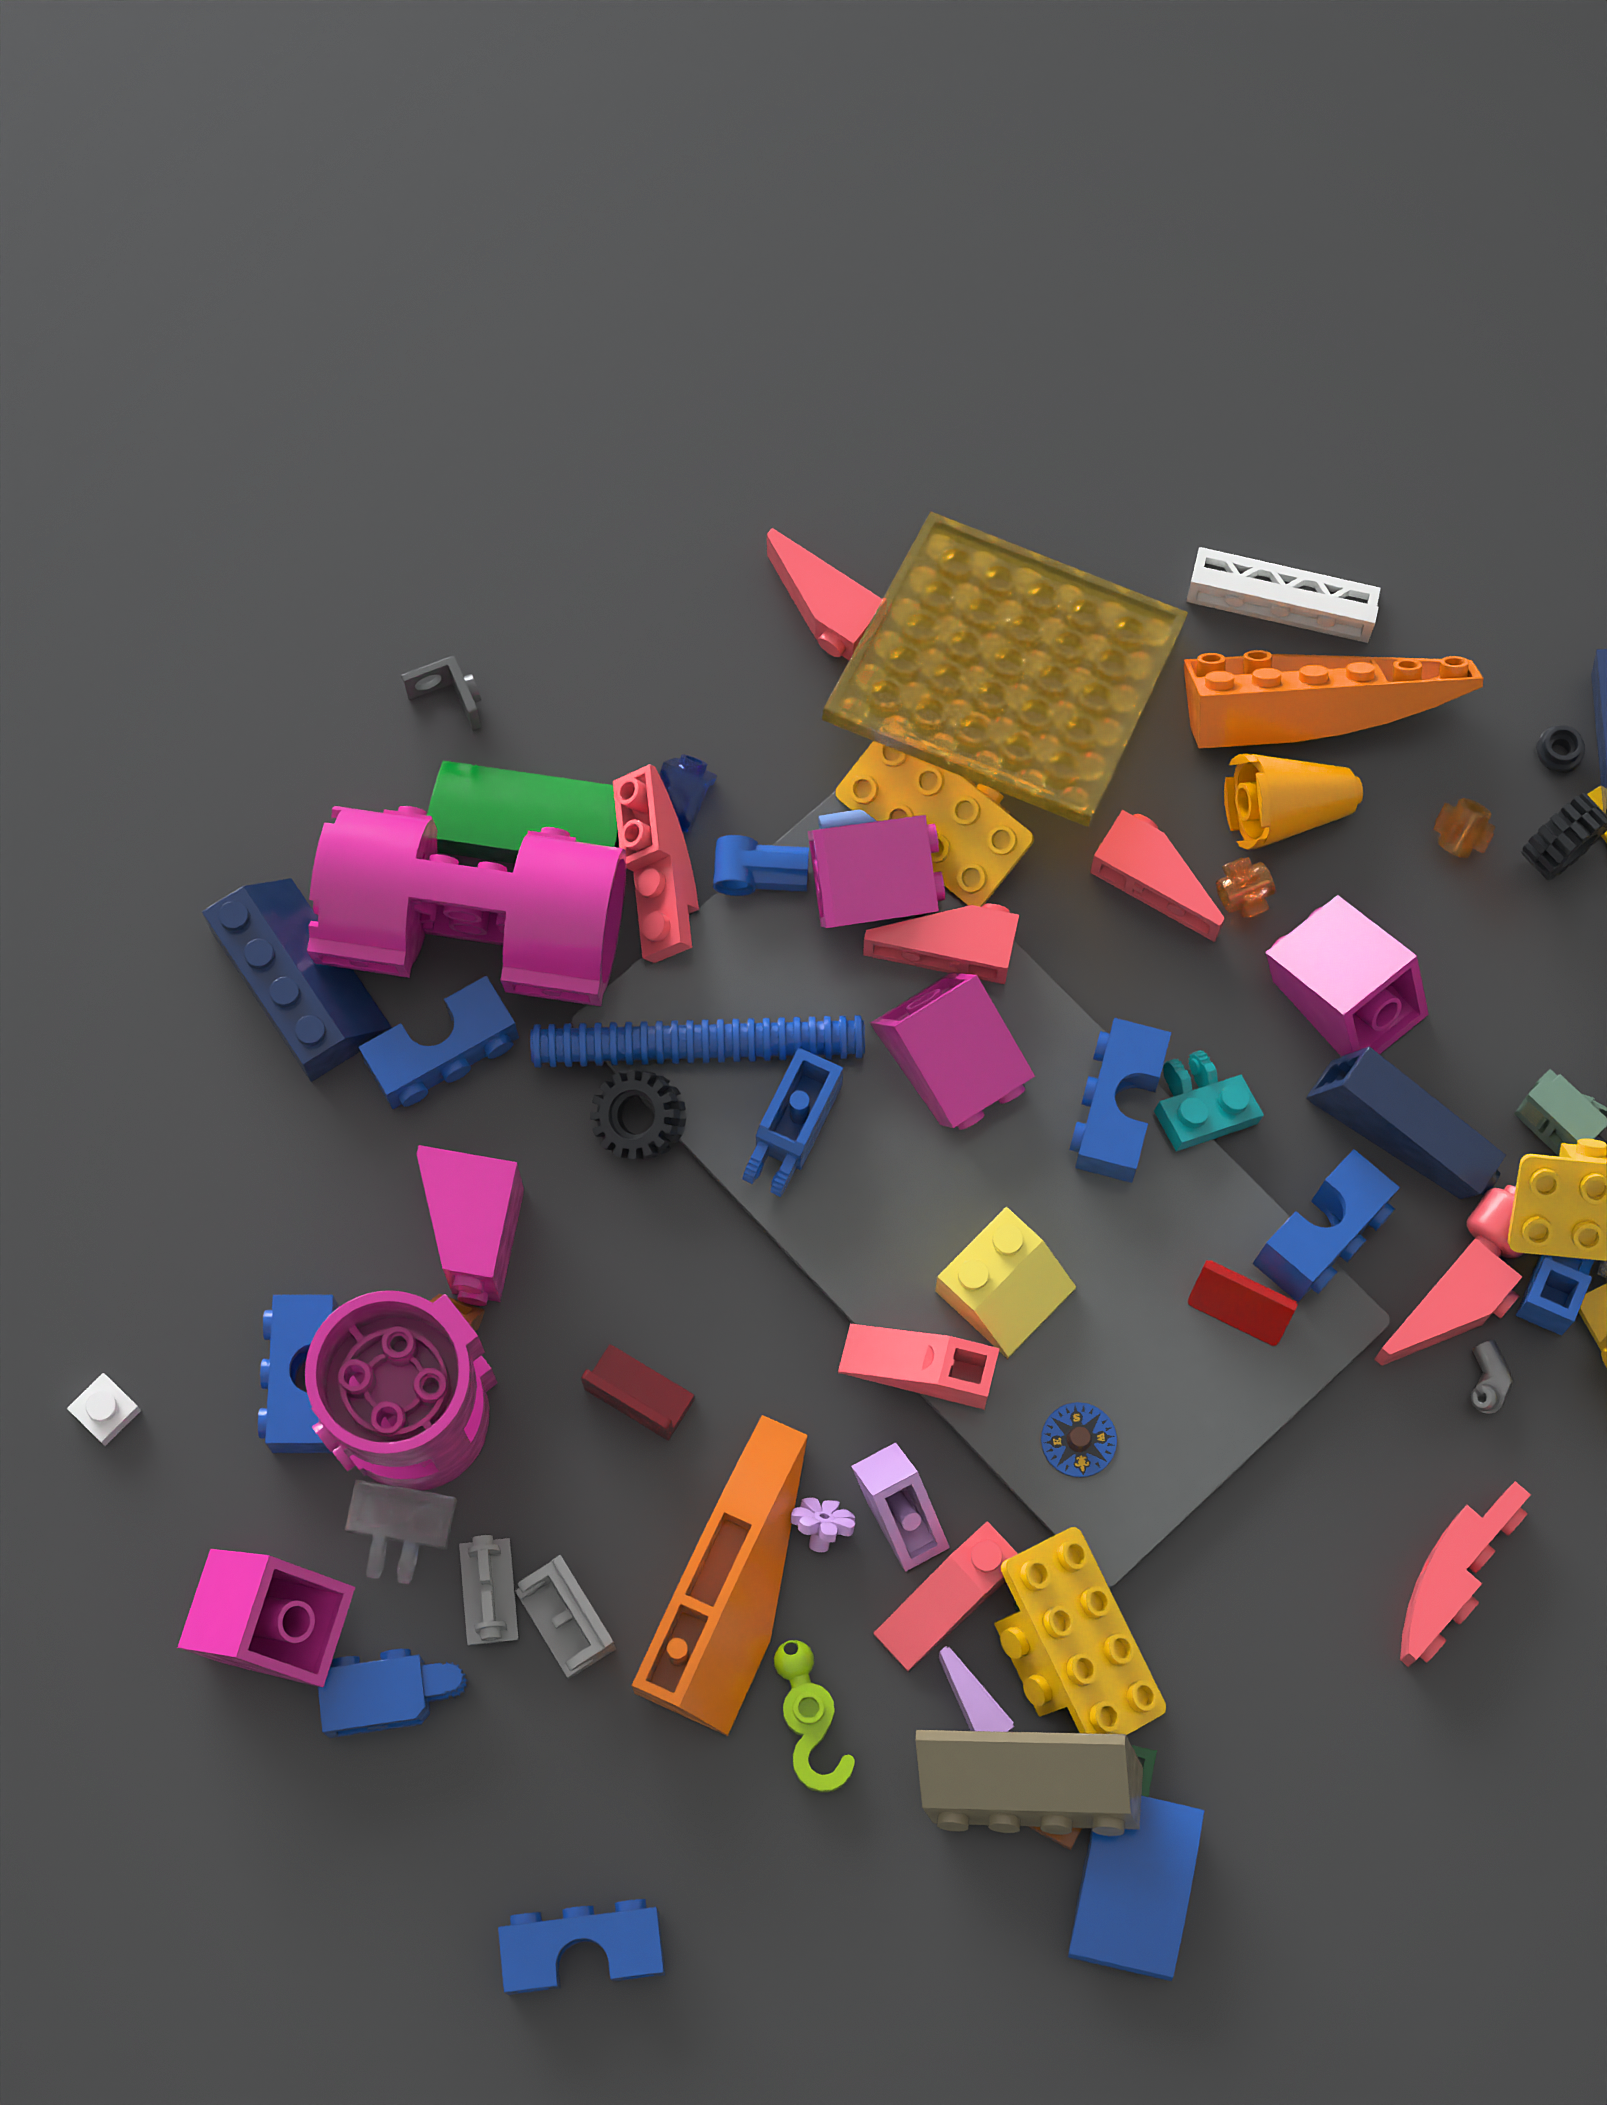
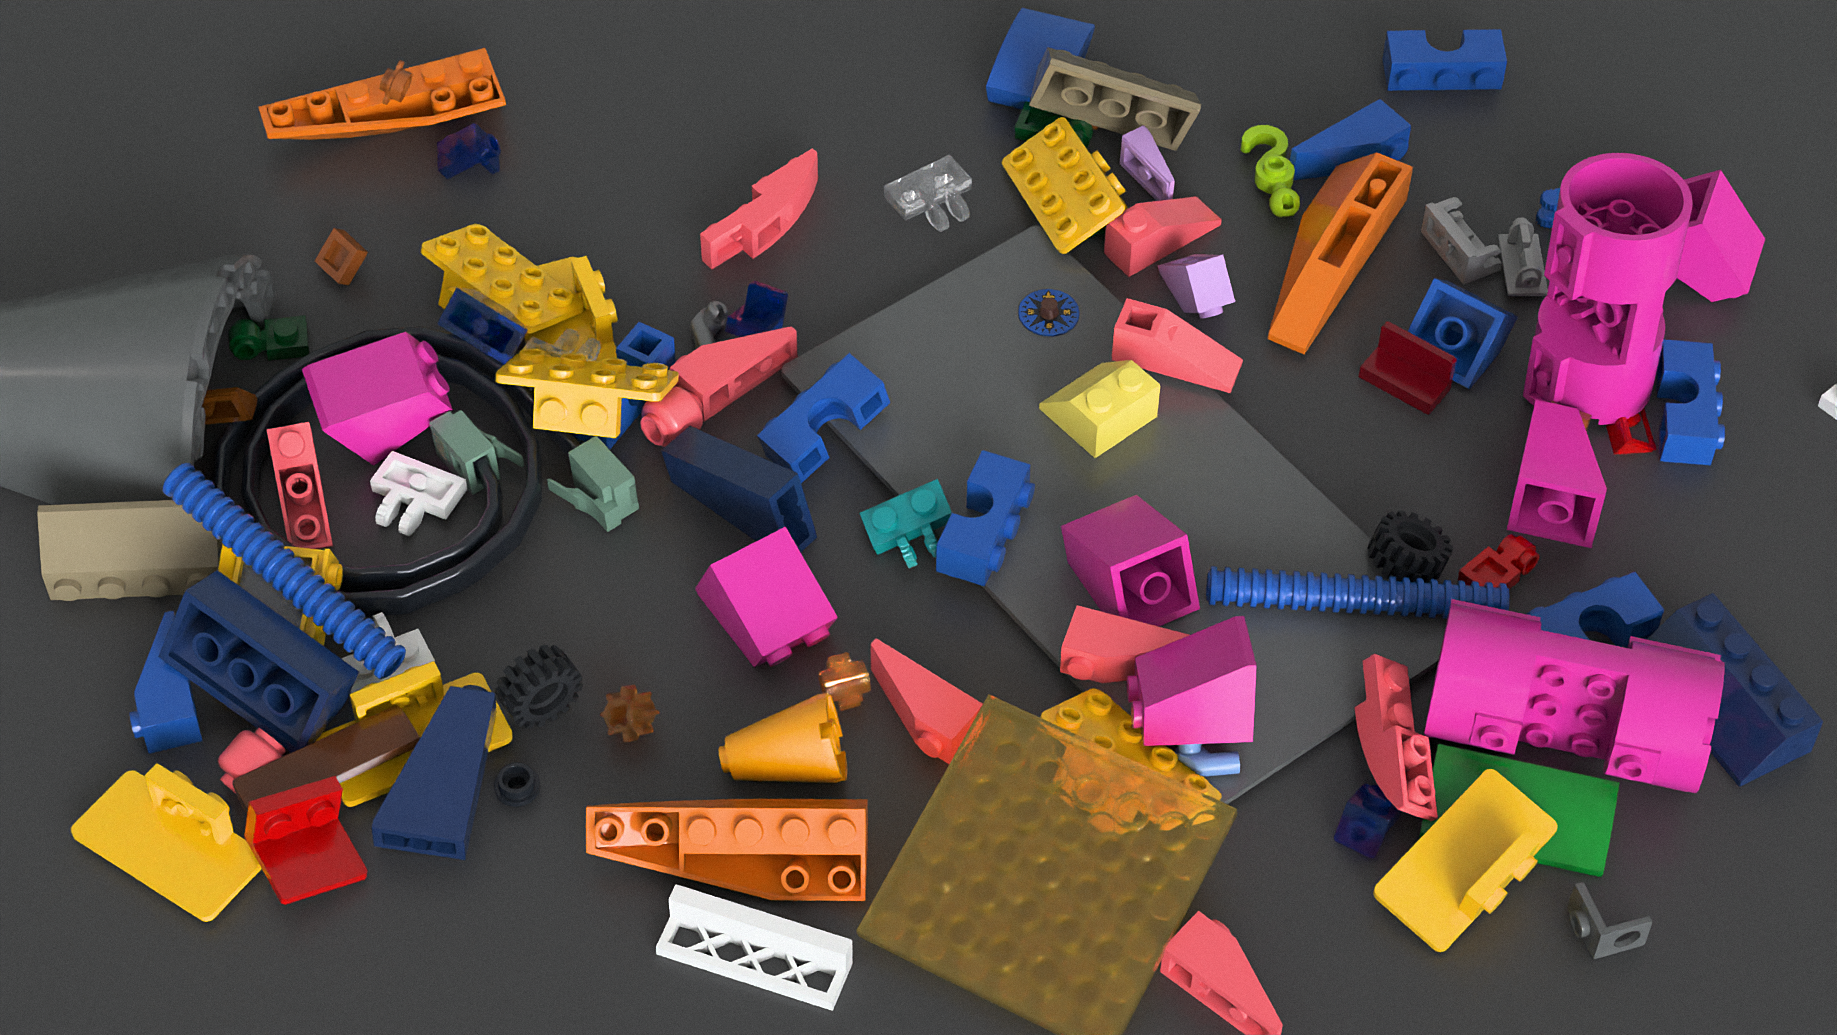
camera: 175 degrees left, 20 degrees down
(543, 1105) = (1505, 565): none -> red plate
(573, 1457) = (1463, 327): none -> blue slope
(579, 735) = (1466, 860): none -> yellow bracket
(697, 1774) = (1363, 133): none -> blue slope
(746, 866) = (1310, 729): blue piece -> none
(795, 1117) = (1271, 520): blue hinge -> none
(822, 1522) = (1254, 284): lavender plant -> none
(1242, 1303) = (904, 380): red slope -> none
(1255, 1637) = (928, 189): none -> clear hinge
(1433, 1390) = (761, 313): none -> clear blue bracket

